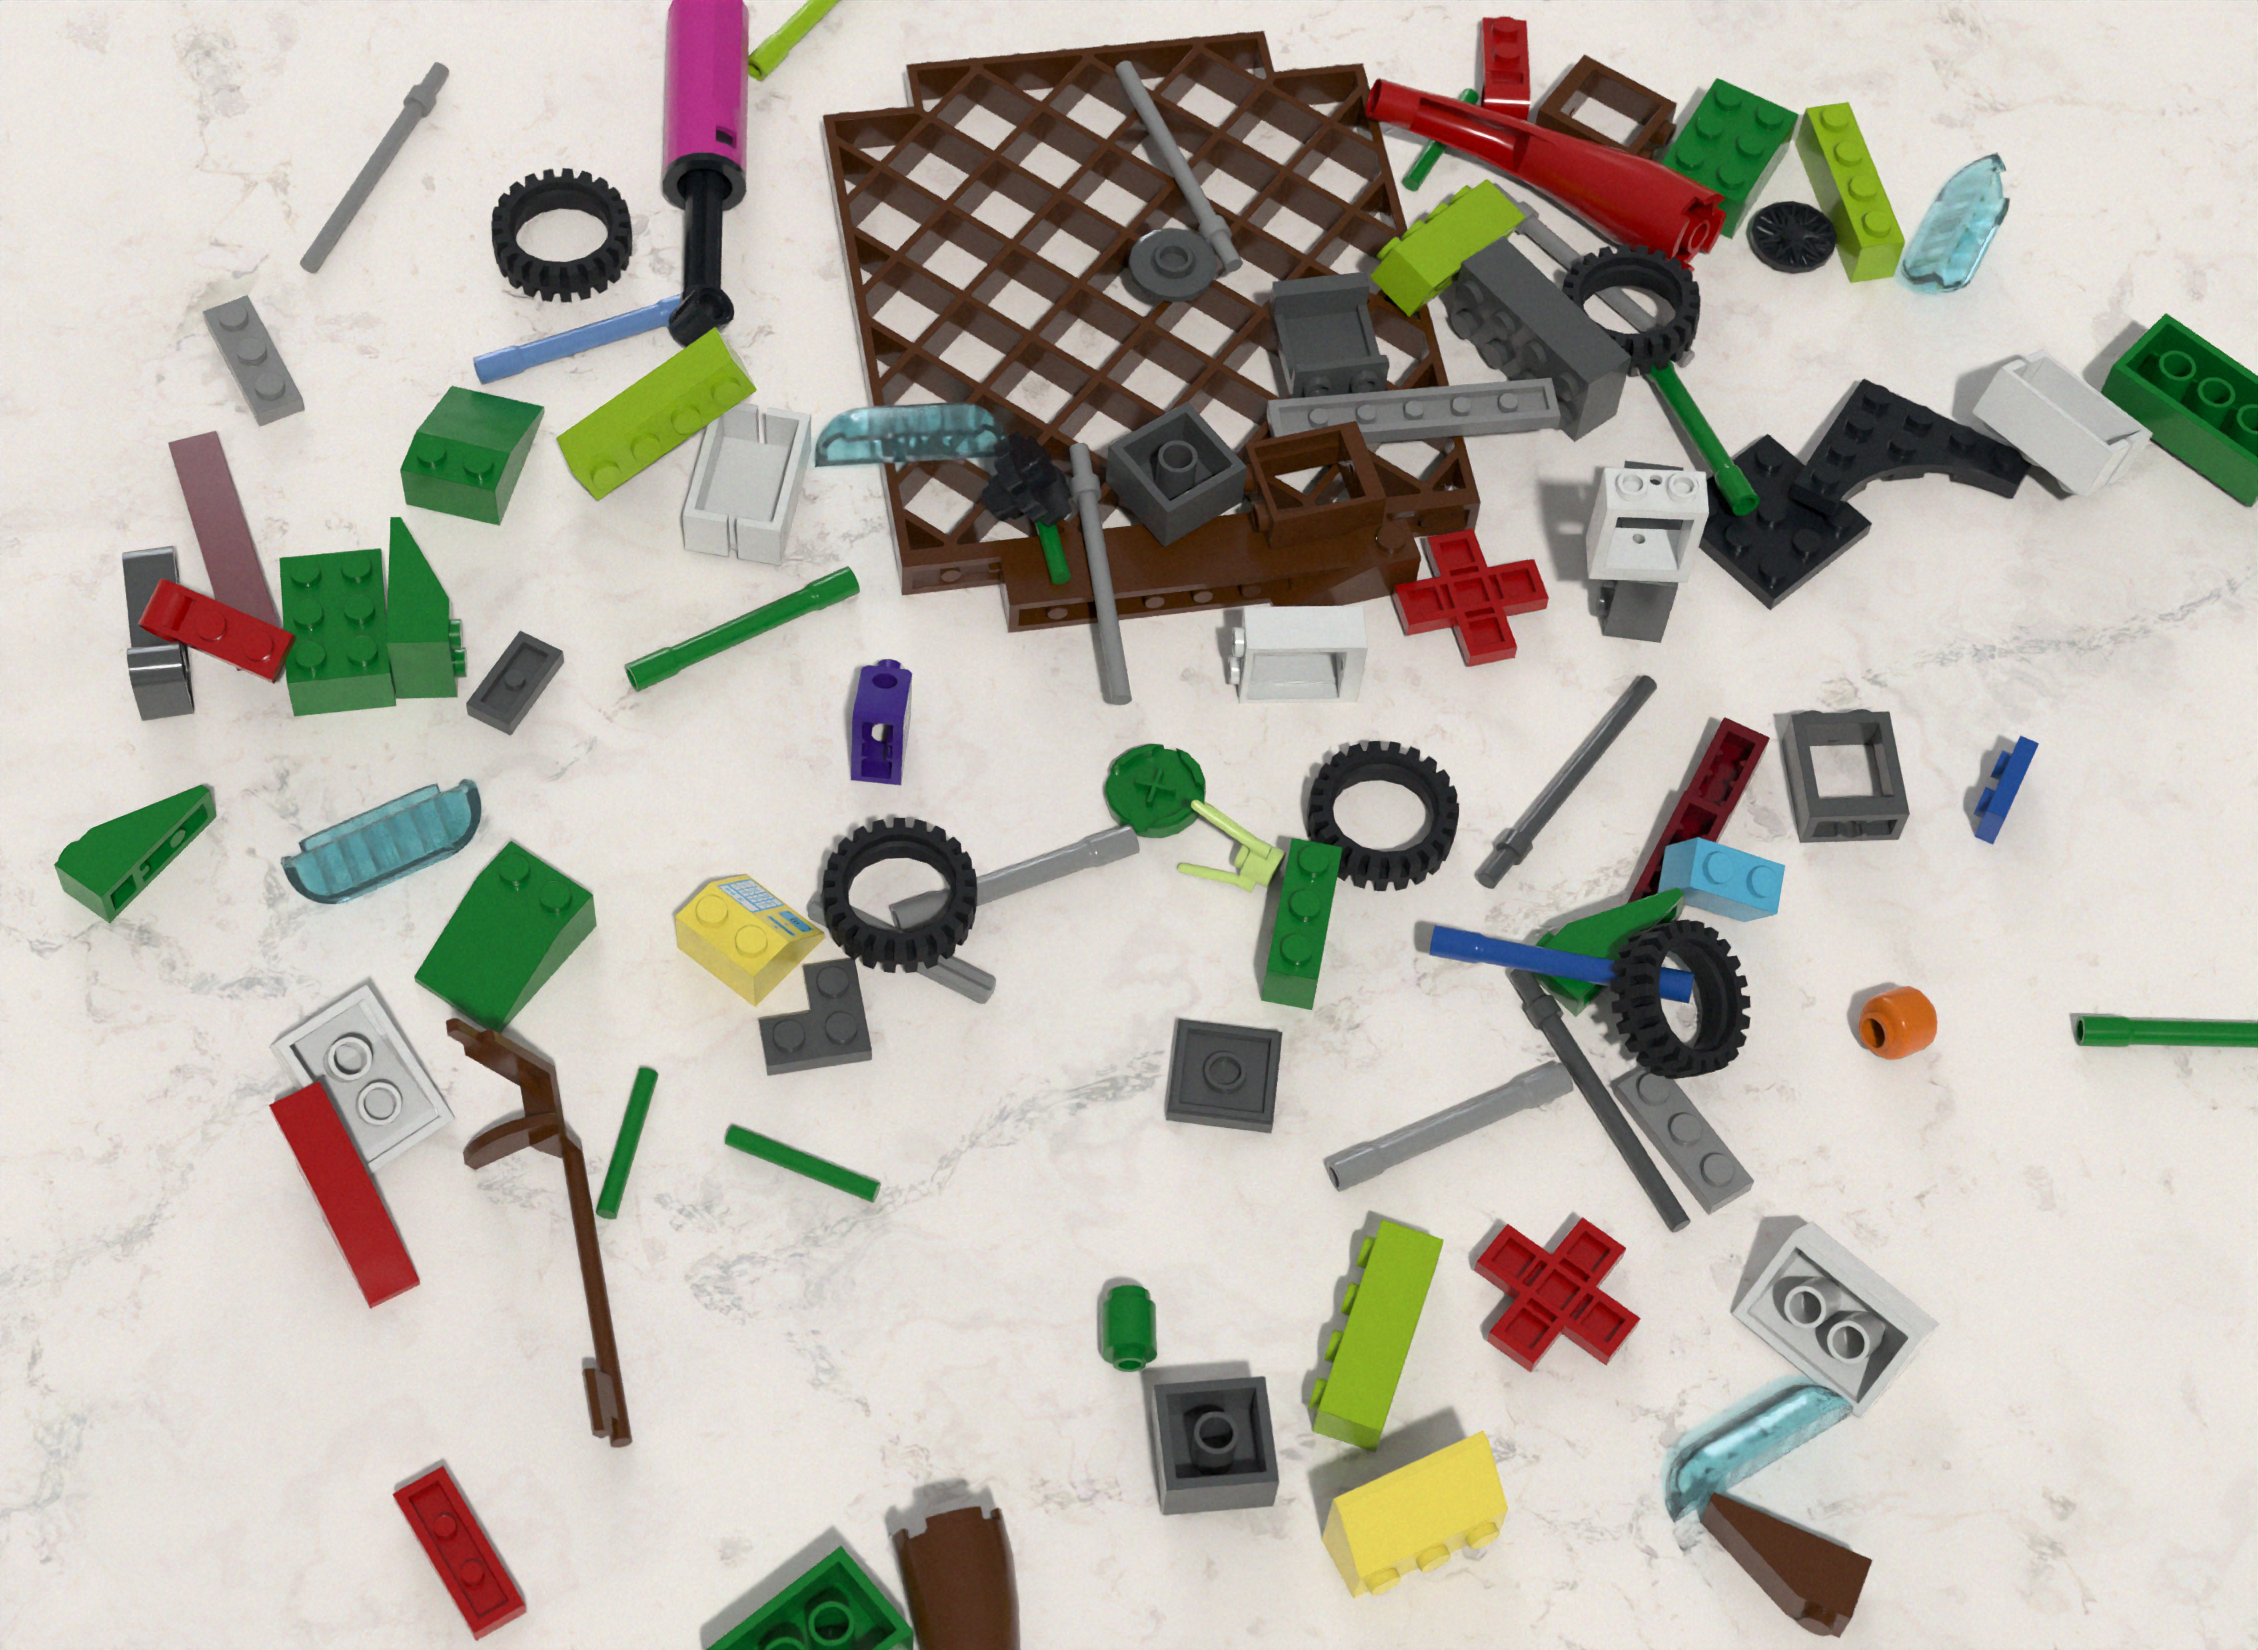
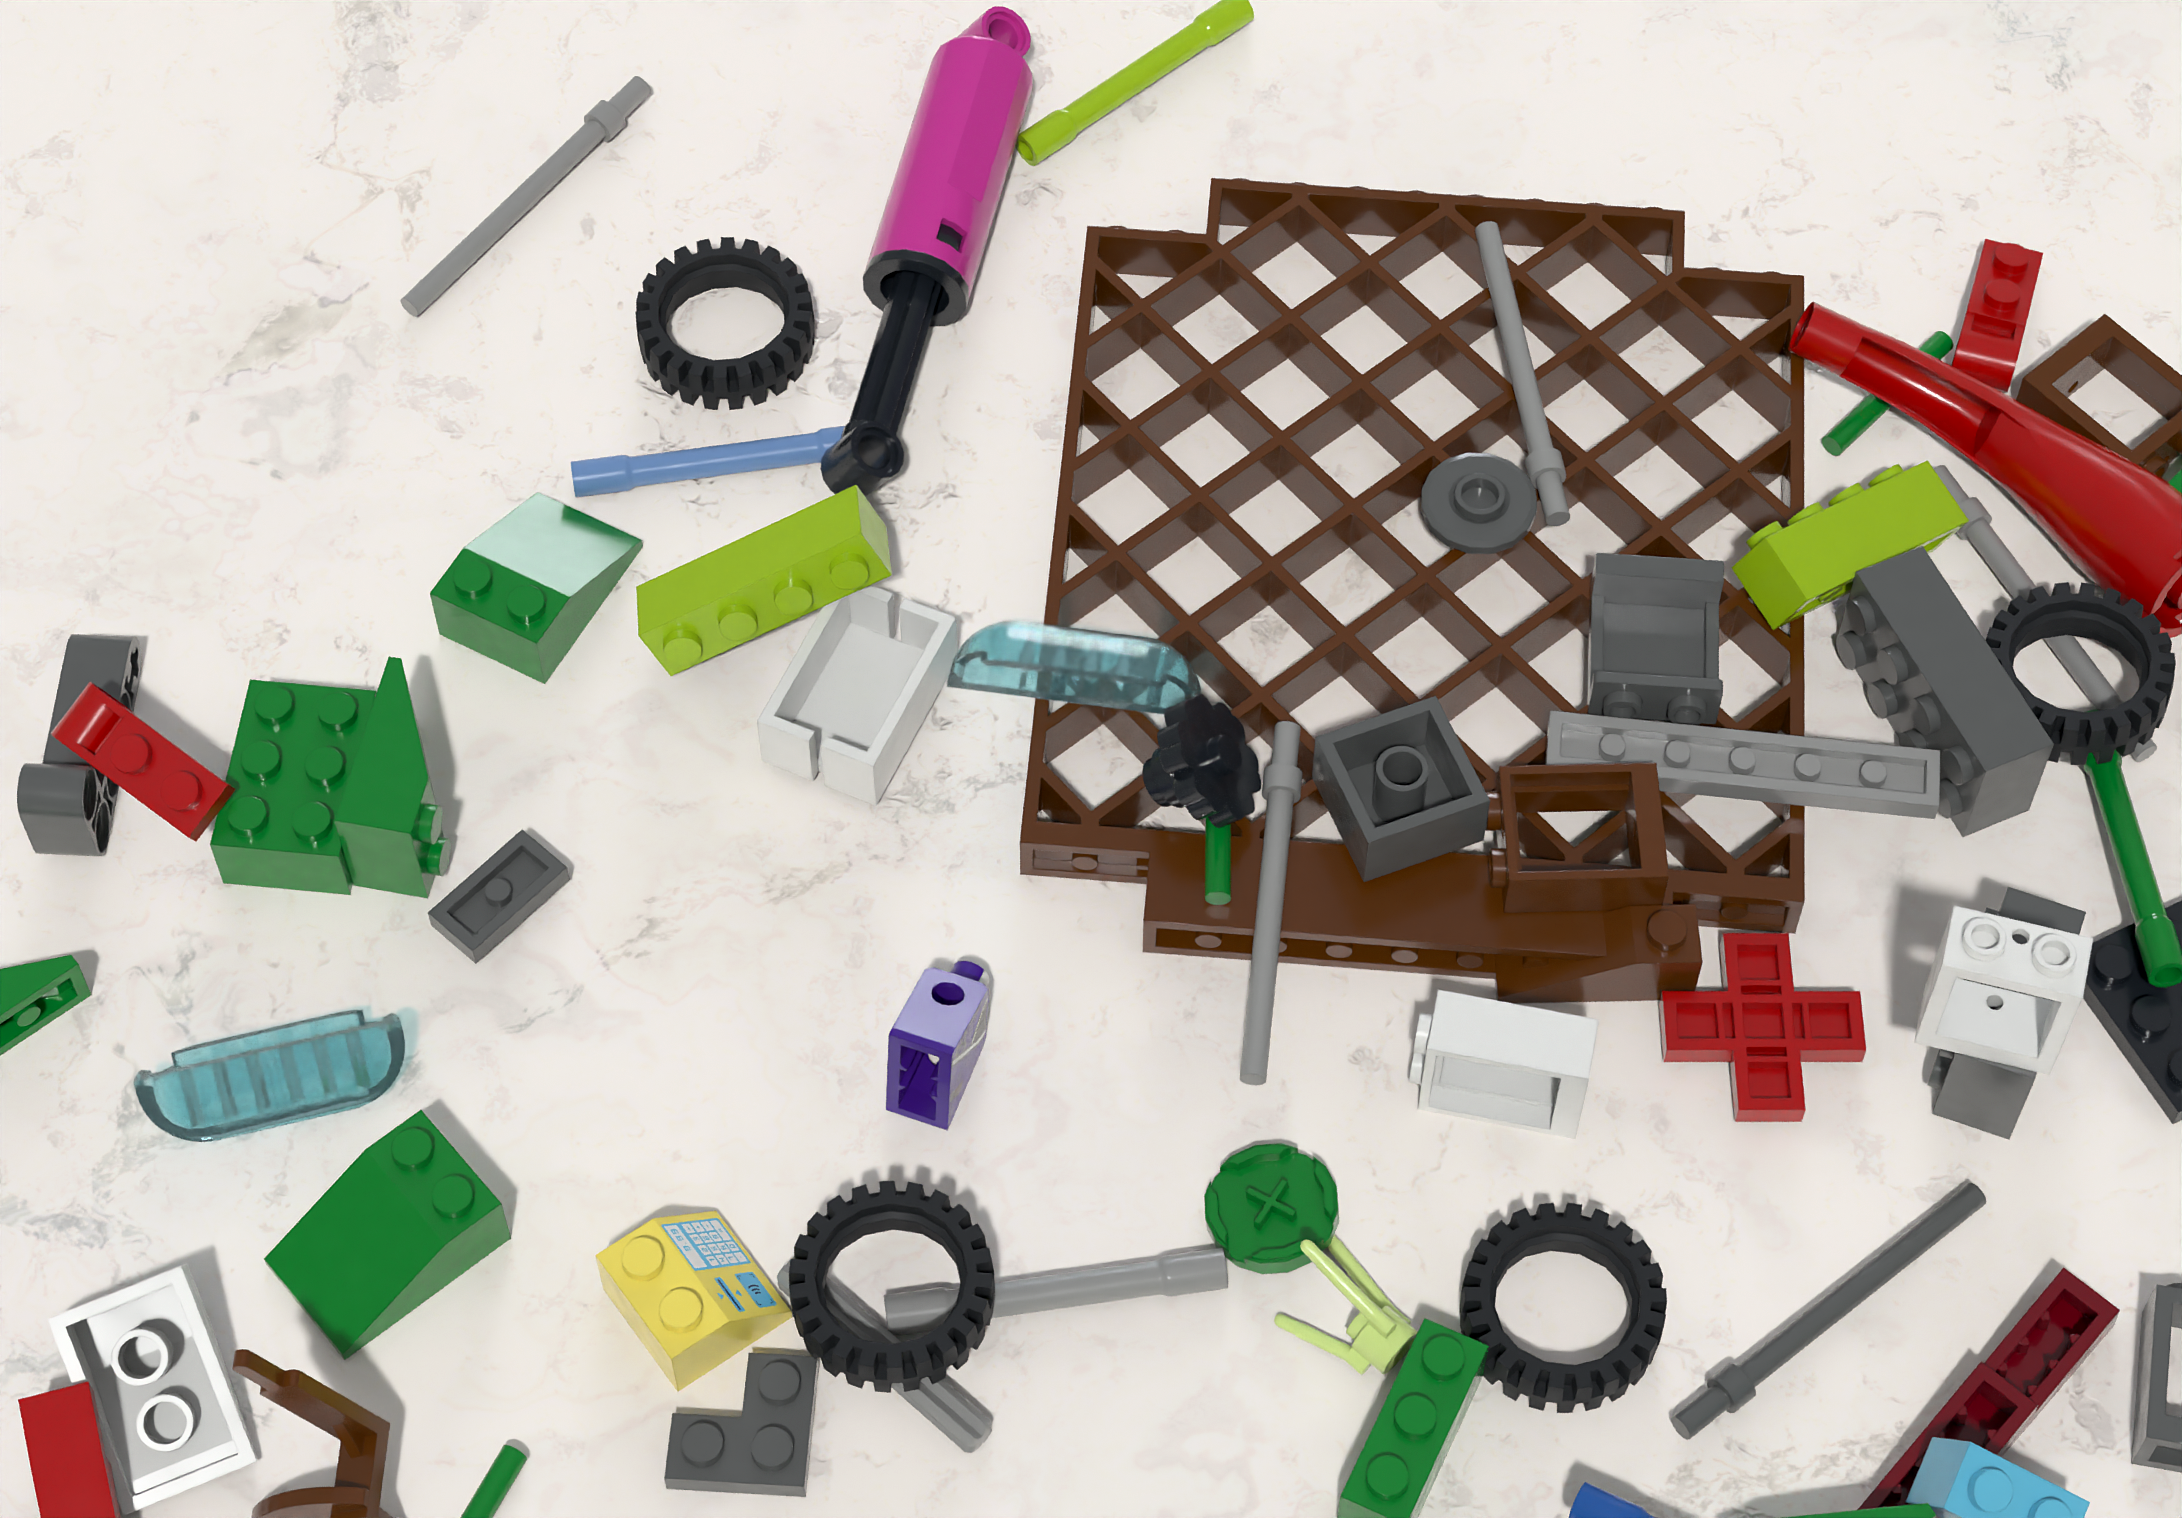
camera: 20 degrees right, 0 degrees up
(220, 526) = (203, 632): slope -> none
(253, 360) = (308, 416): light grey plate -> none
(671, 660) = (701, 904): green piece -> none

